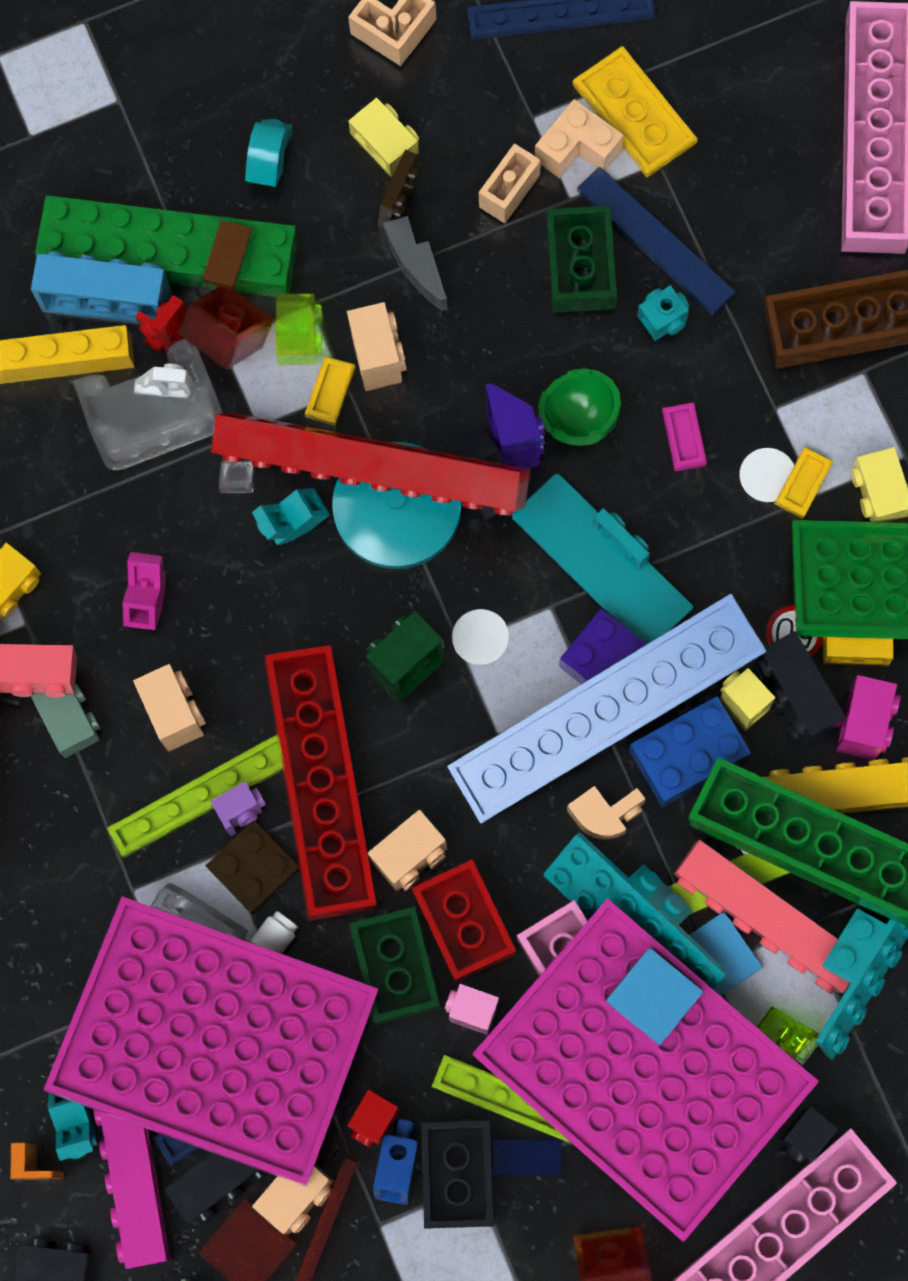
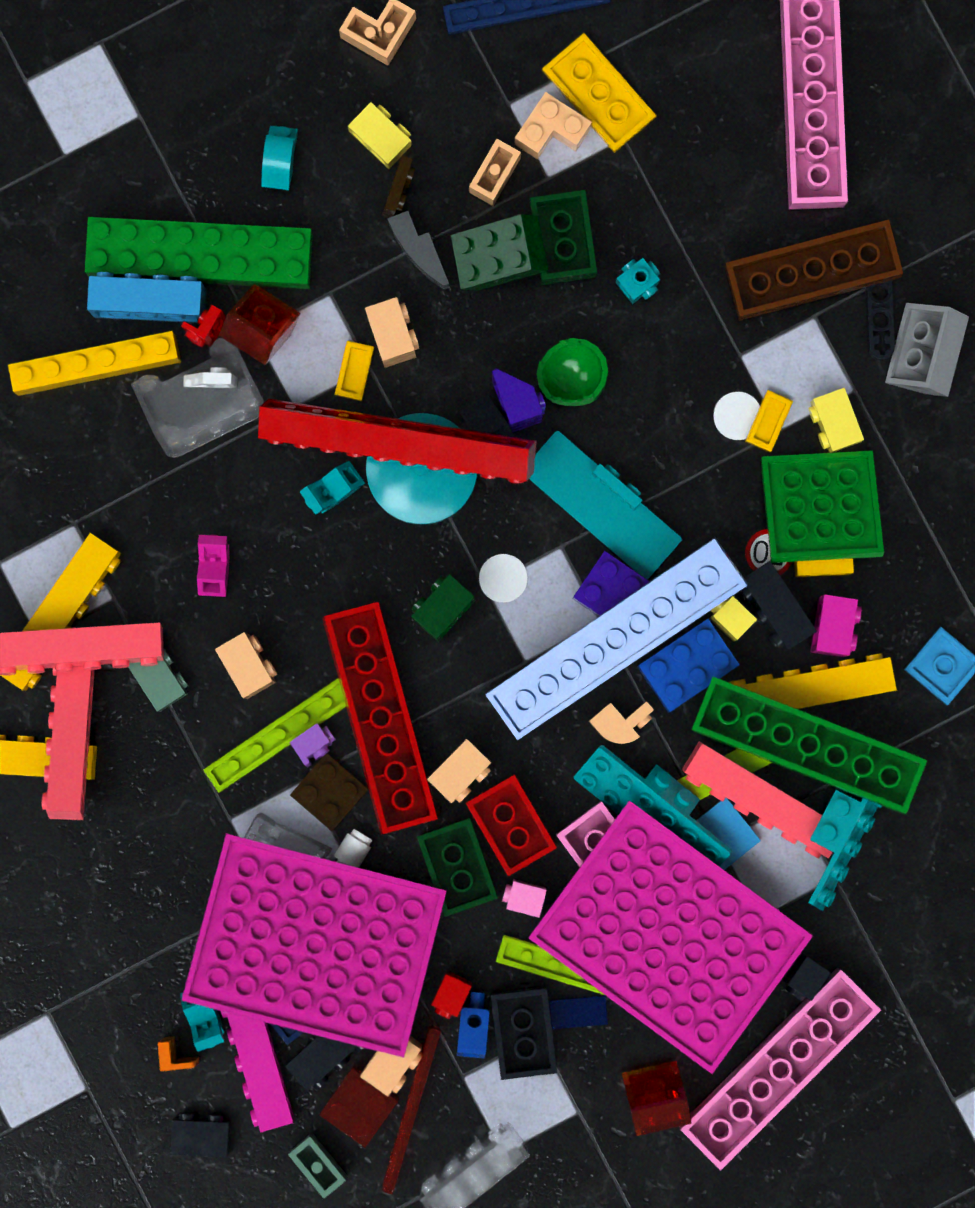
camera: 10 degrees left, 10 degrees up
(227, 255) = (255, 262): reddish brown tile -> none
(236, 477) = (280, 456): clear slope -> none
(297, 329) = (320, 319): clear neon green brick -> none
(507, 267) = (499, 252): none -> dark green brick
(654, 996) = (674, 879): dark azure tile -> none
(657, 242) = (626, 212): dark blue tile -> none
(684, 436) = (663, 388): dark pink tile -> none
(789, 1034) = (784, 896): clear neon green slope -> none

